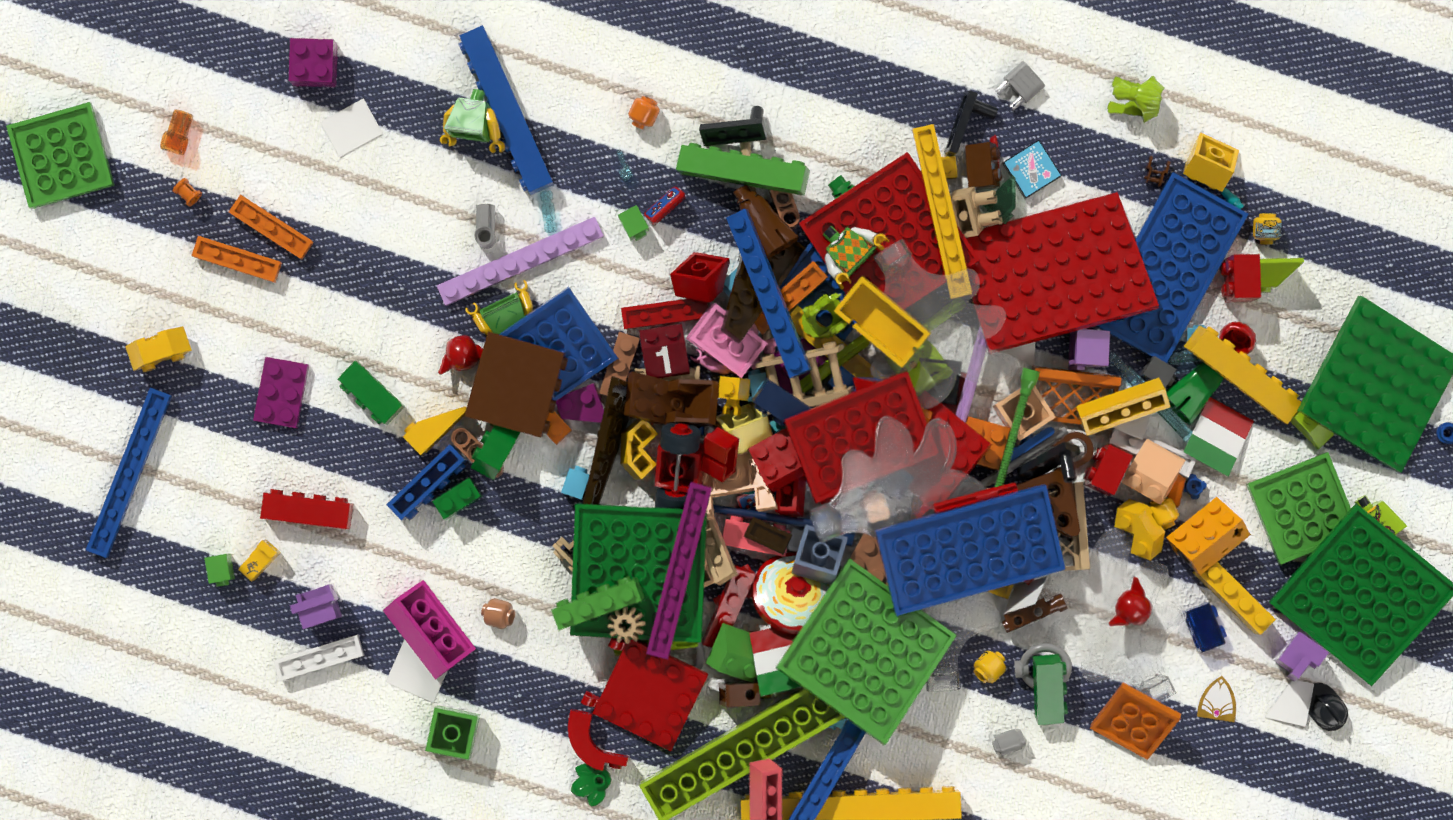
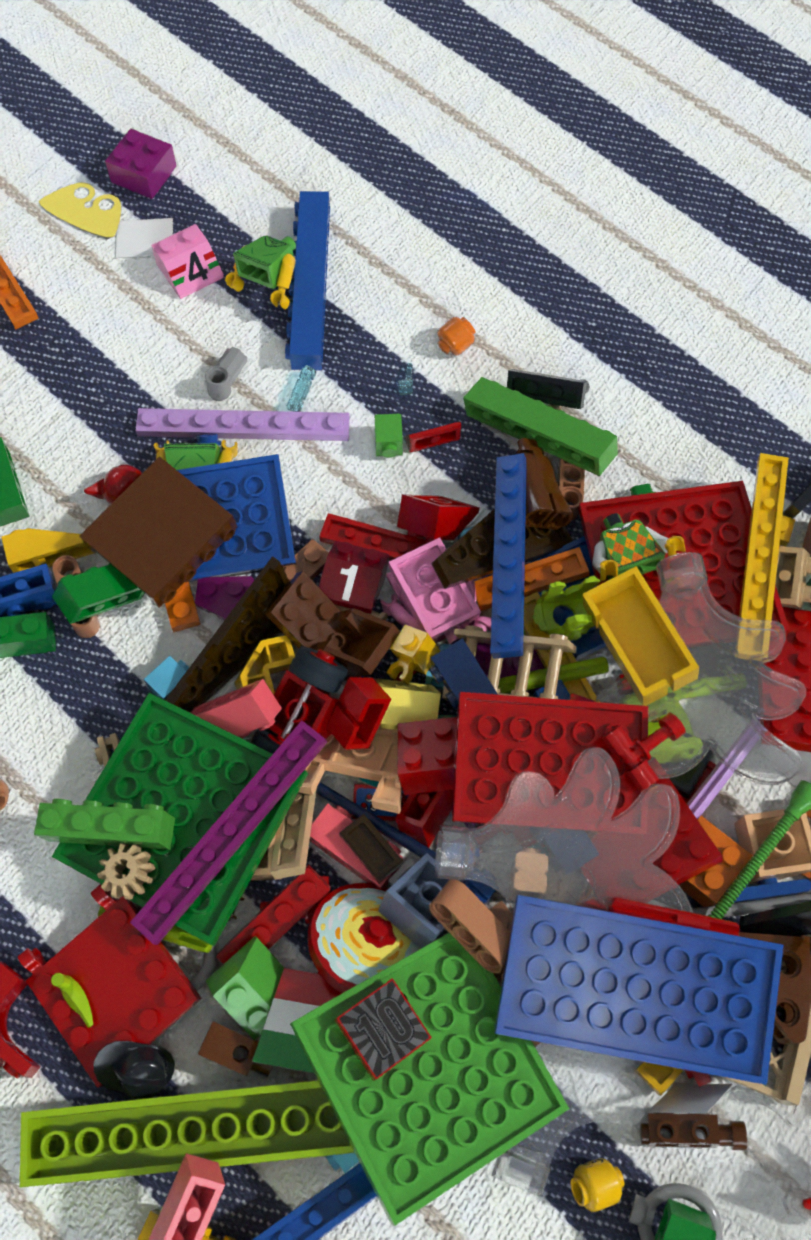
camera: 30 degrees right, 20 degrees down
(298, 130) = (72, 210): none -> light yellow piece
(403, 140) = (187, 261): none -> bright pink slope
(503, 290) = (208, 439): none -> blue plate
(630, 708) = (74, 996): none -> lime bar
(638, 488) = (241, 710): none -> coral brick
(689, 730) = (134, 1068): none -> black piece
(830, 645) = (383, 1029): none -> tile
(855, 559) = (472, 925): none -> nougat beam
(911, 408) = (636, 752): none -> red bar

